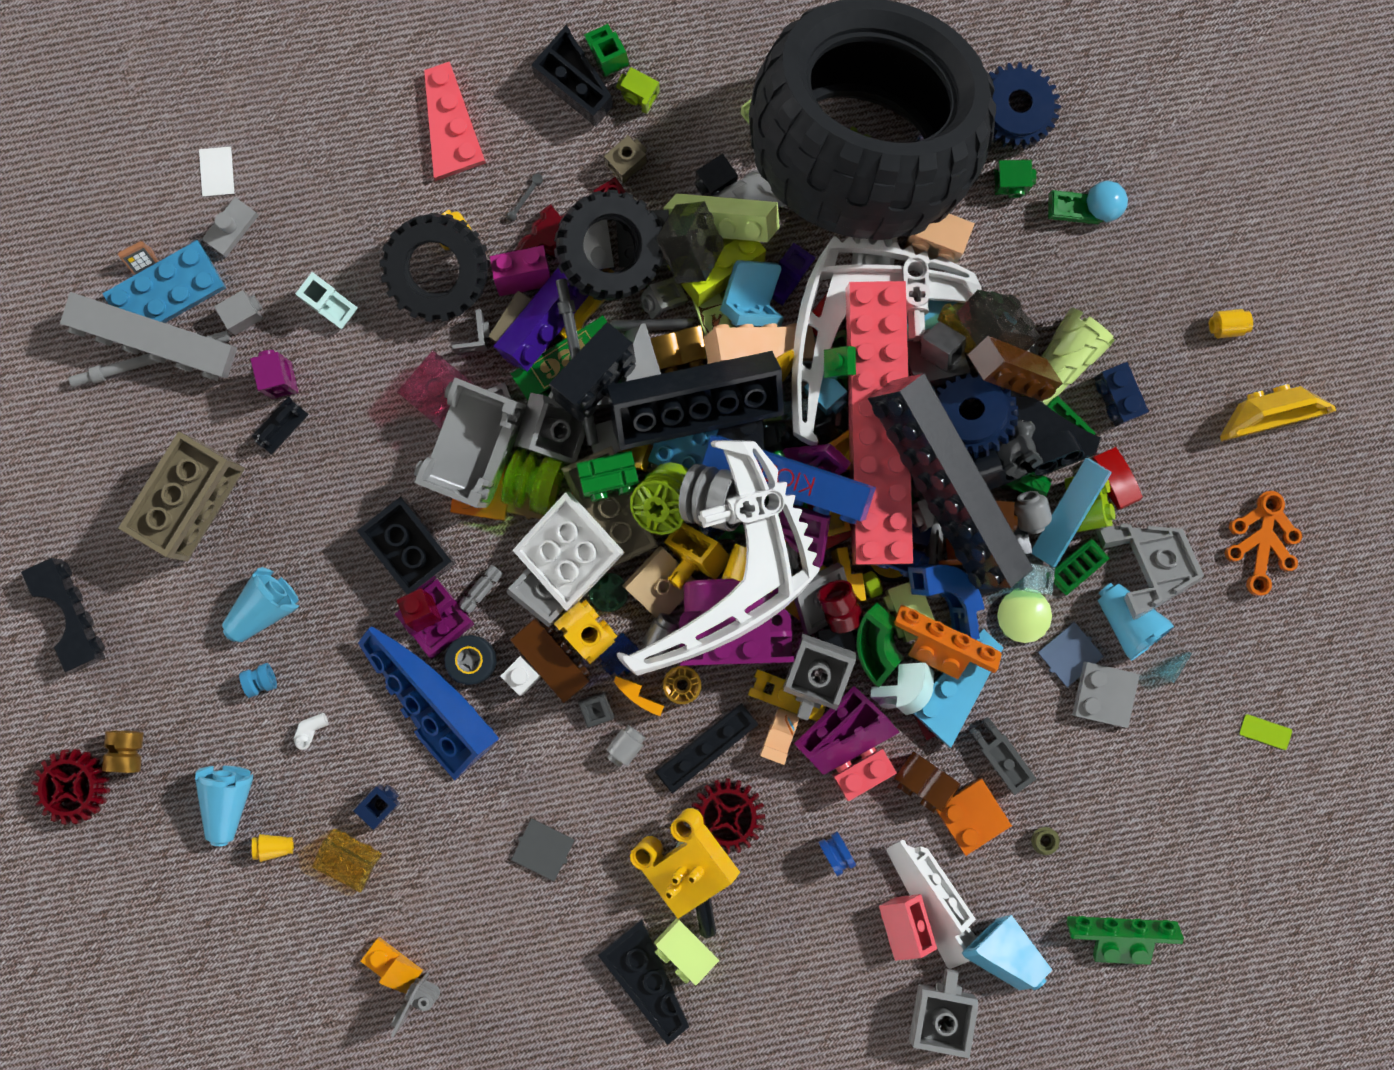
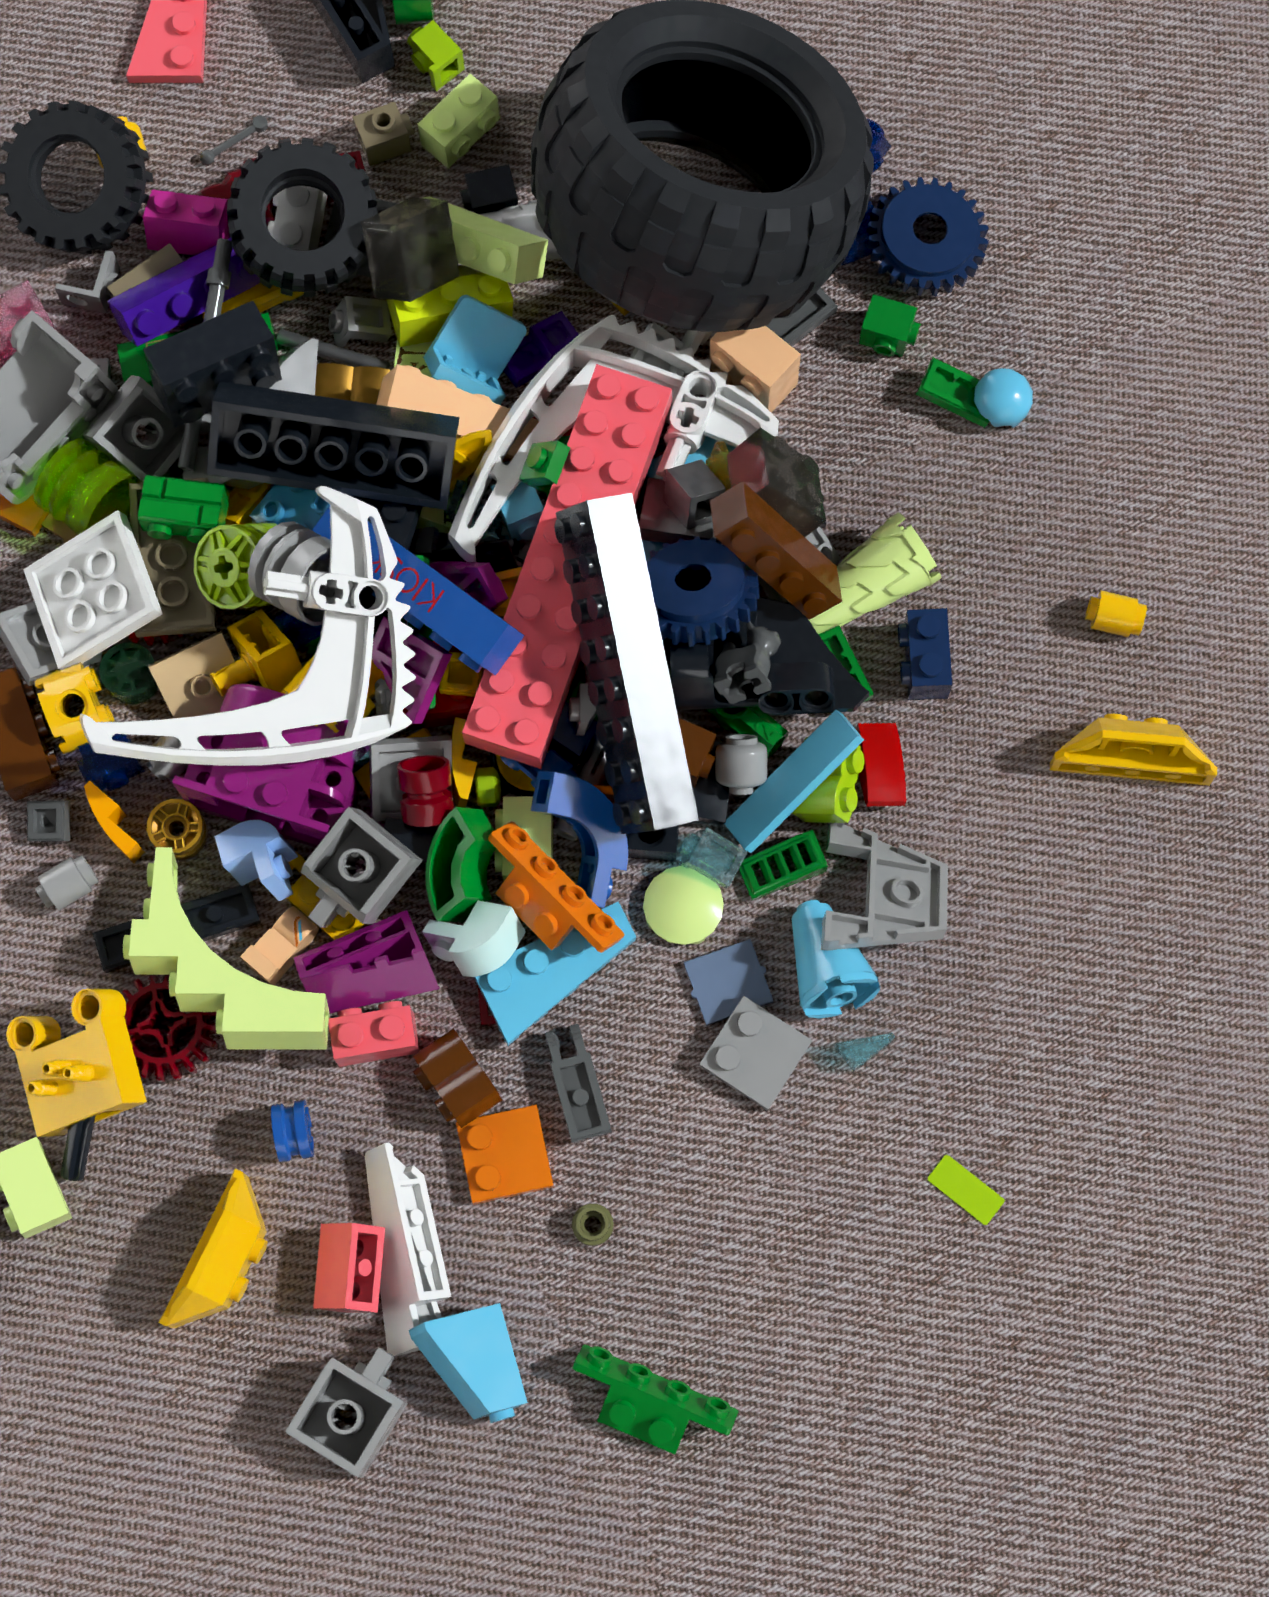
camera: 25 degrees right, 10 degrees down
(673, 134) = (459, 121): none -> yellowish green brick
(741, 682) = (257, 851): none -> light blue brick
(789, 792) = (247, 1010): none -> yellowish green arch
(823, 950) = (221, 1258): none -> yellow wedge
(1265, 538) = (1060, 919): orange plant -> none

